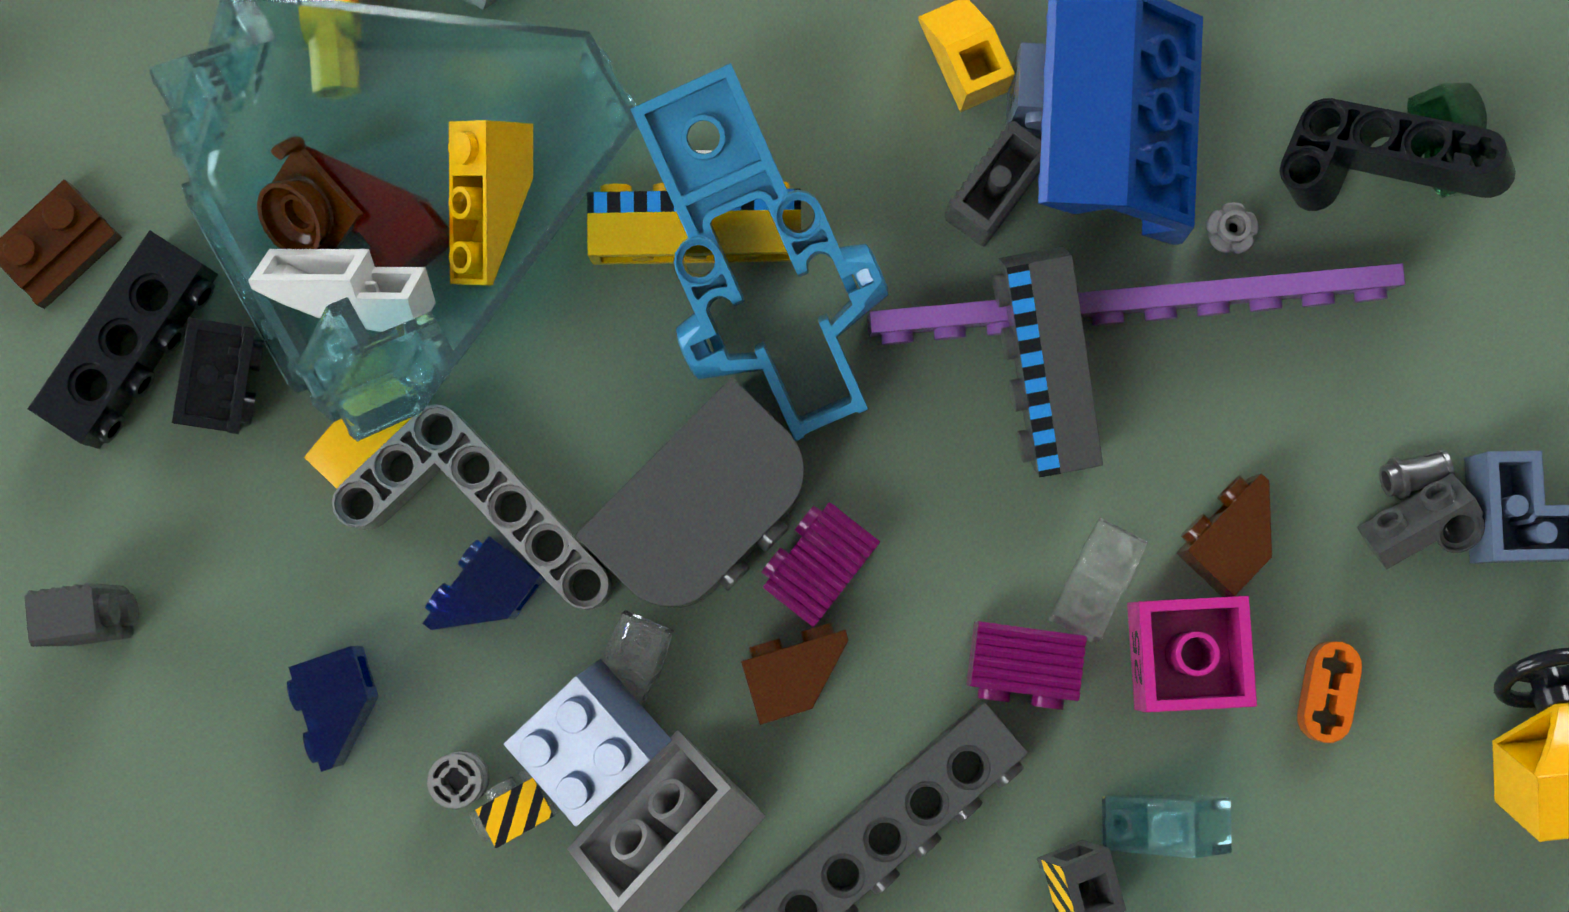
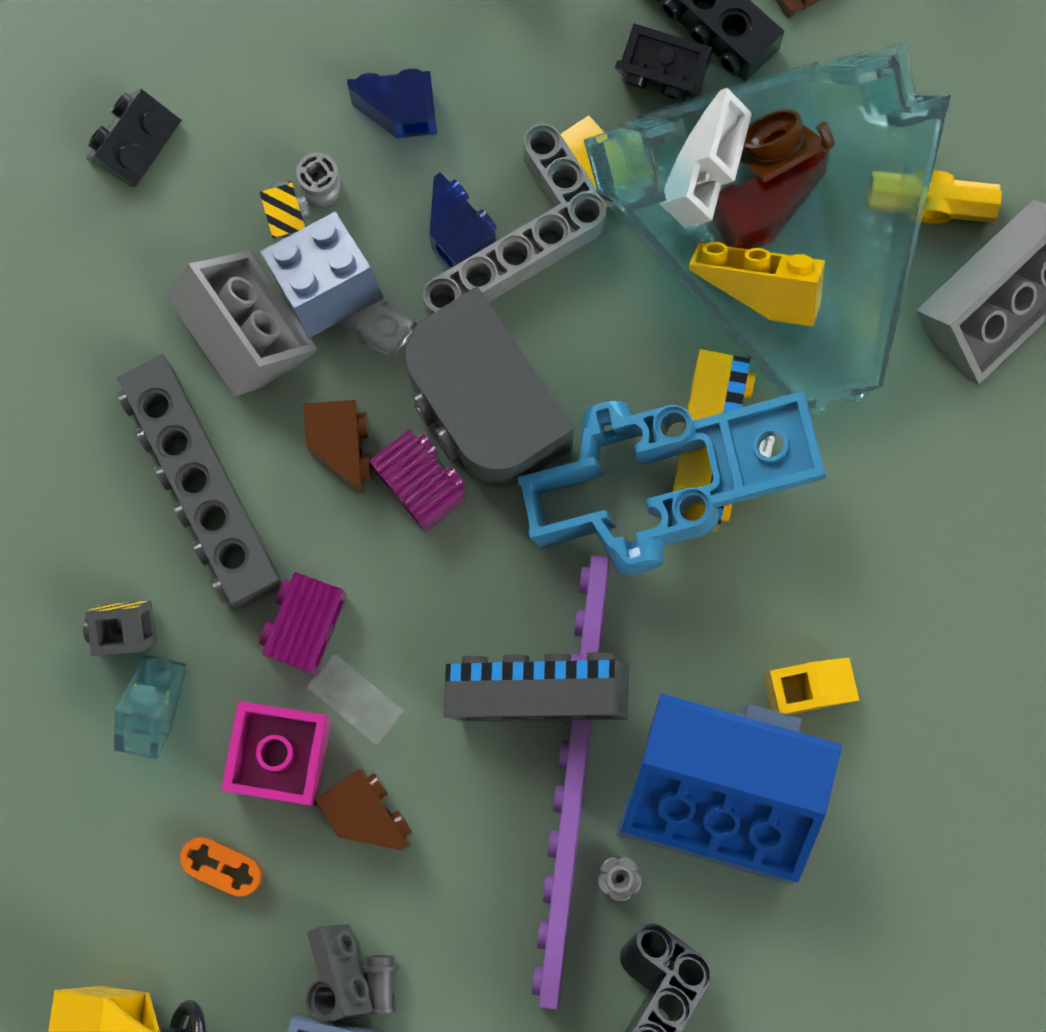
camera: 105 degrees right, 5 degrees down
(996, 184) = (688, 678): dark grey brick -> none

